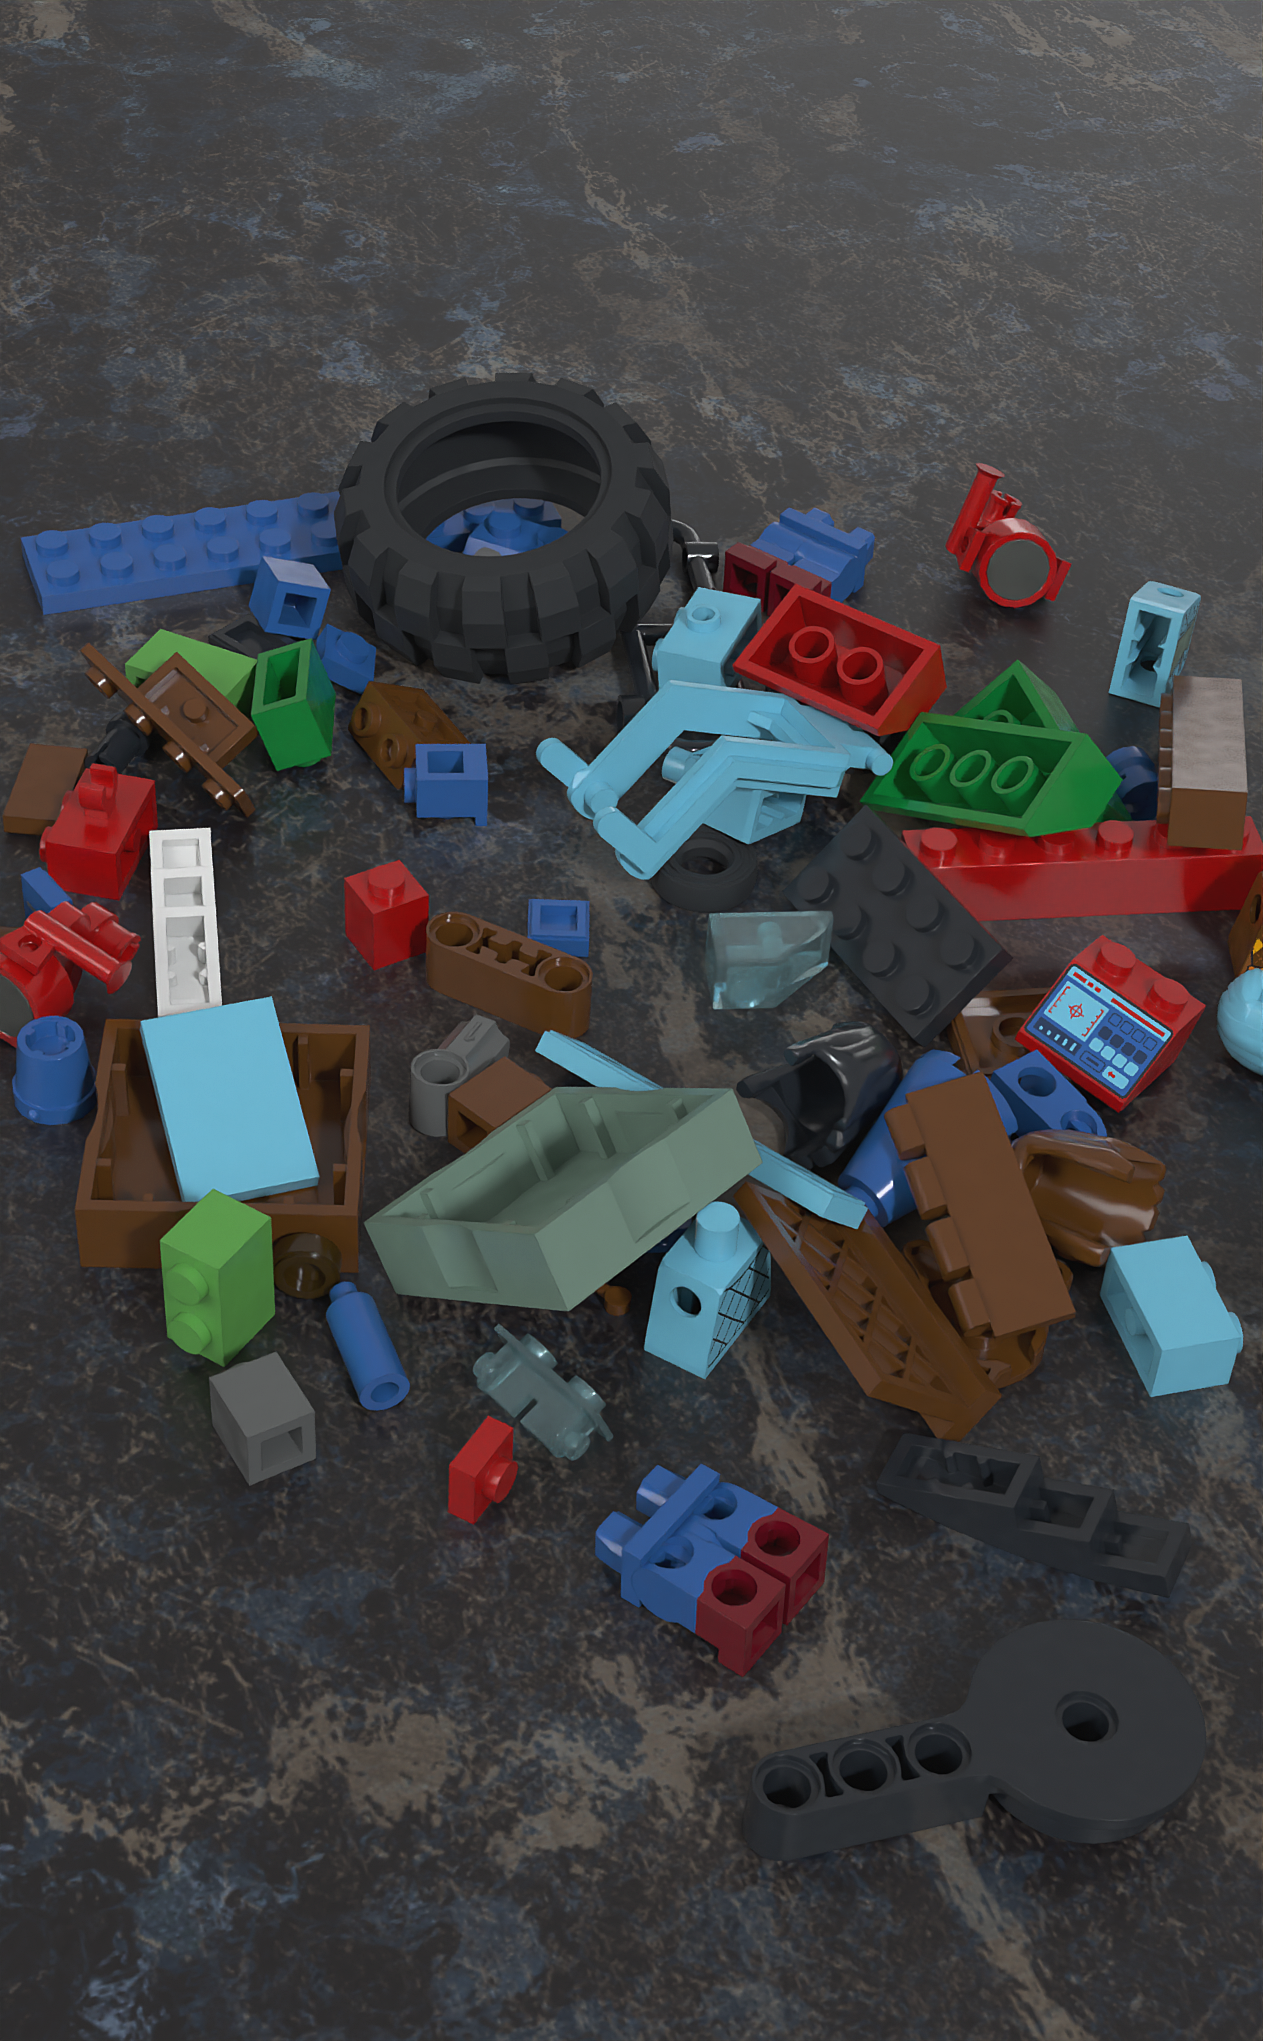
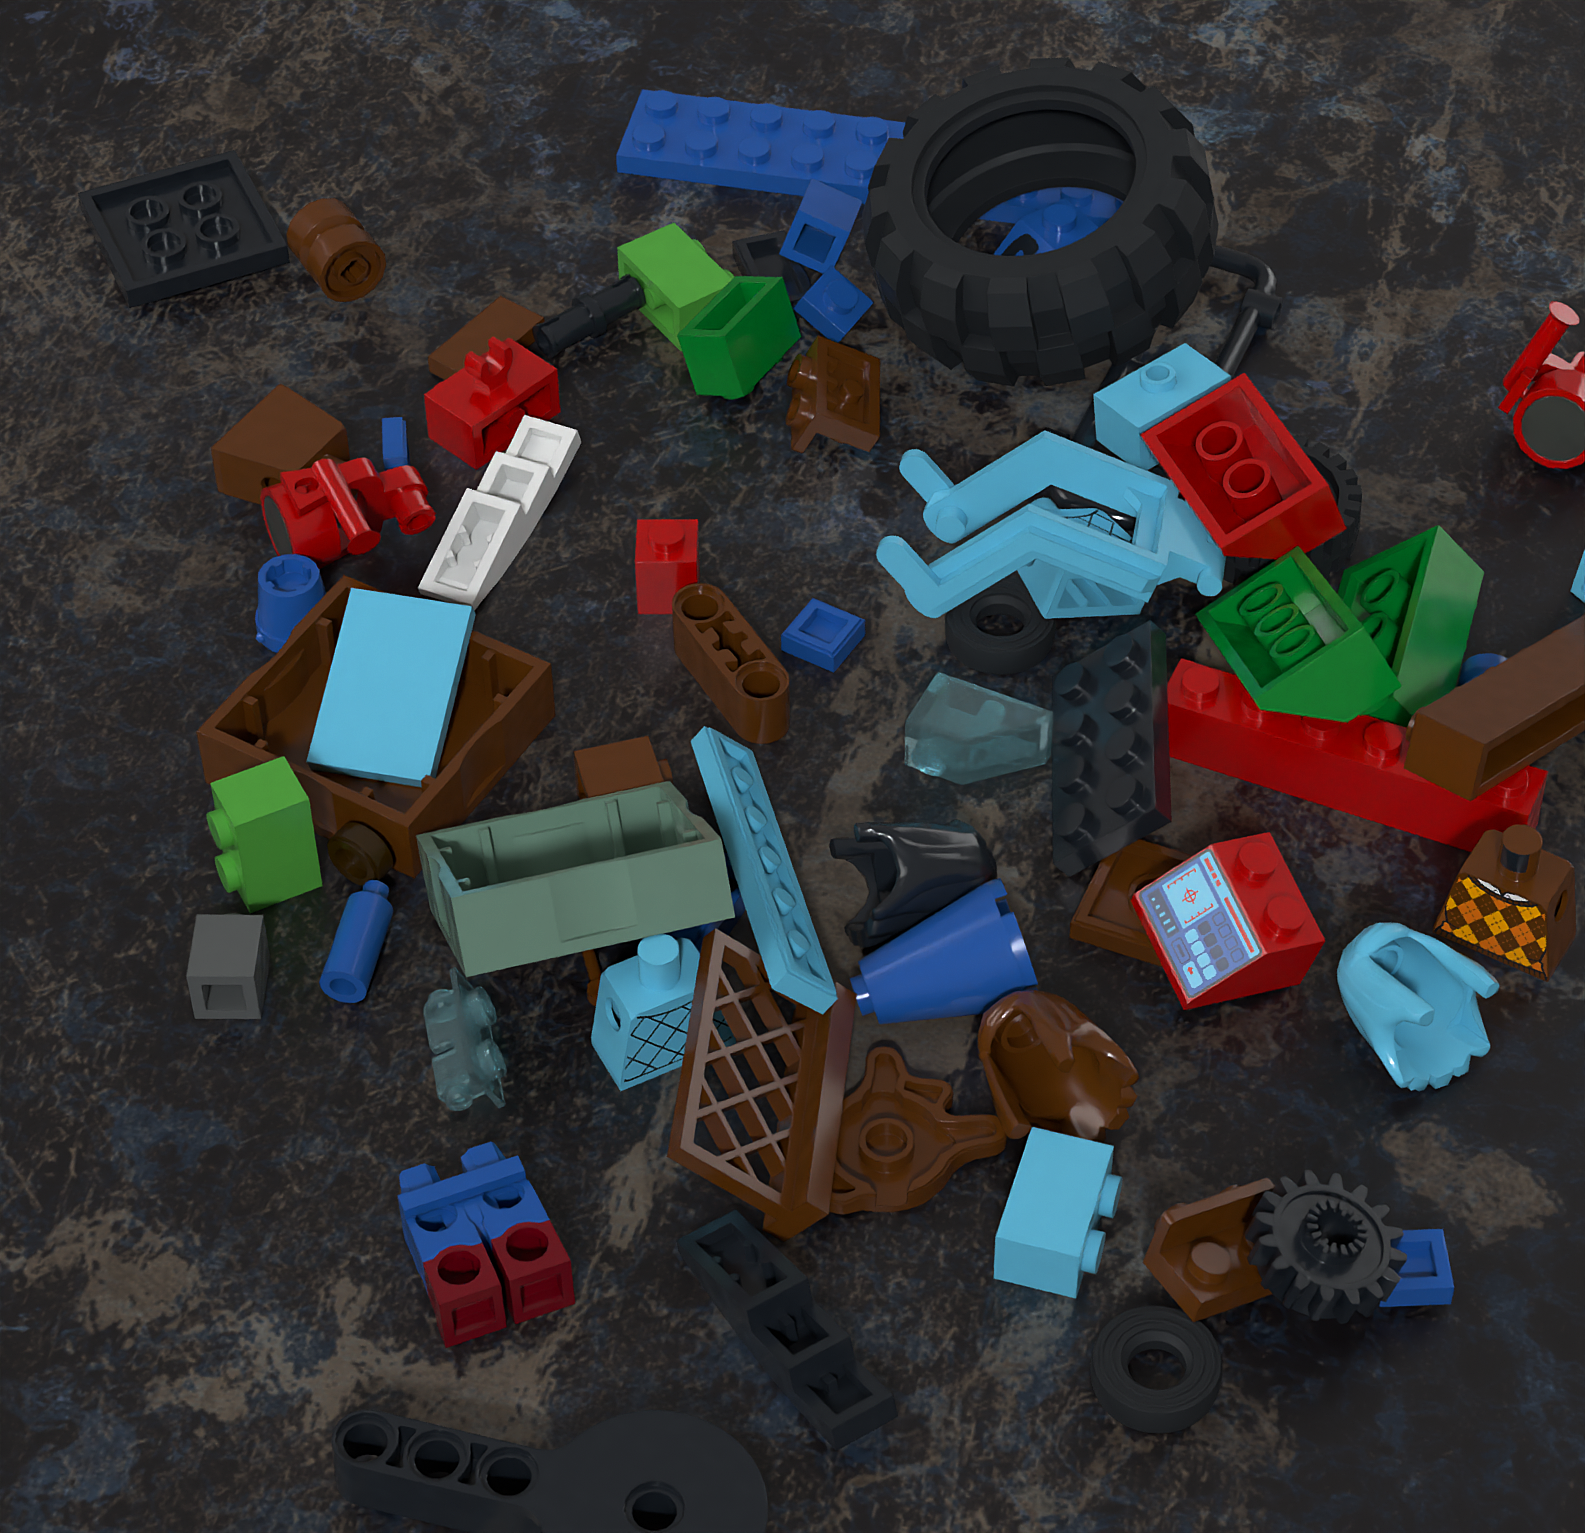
camera: 35 degrees right, 5 degrees up
(189, 714) = (628, 317): reddish brown bracket -> none
(440, 1071) = (592, 726): dark grey piece -> none
(449, 781) = (827, 460): blue brick -> none
(482, 1470) = (360, 1084): red plate -> none
(802, 552) = (1347, 352): blue hips -> none
(991, 1215) = (943, 1031): reddish brown windscreen -> none
(1044, 1097) = (1105, 977): blue leg -> none

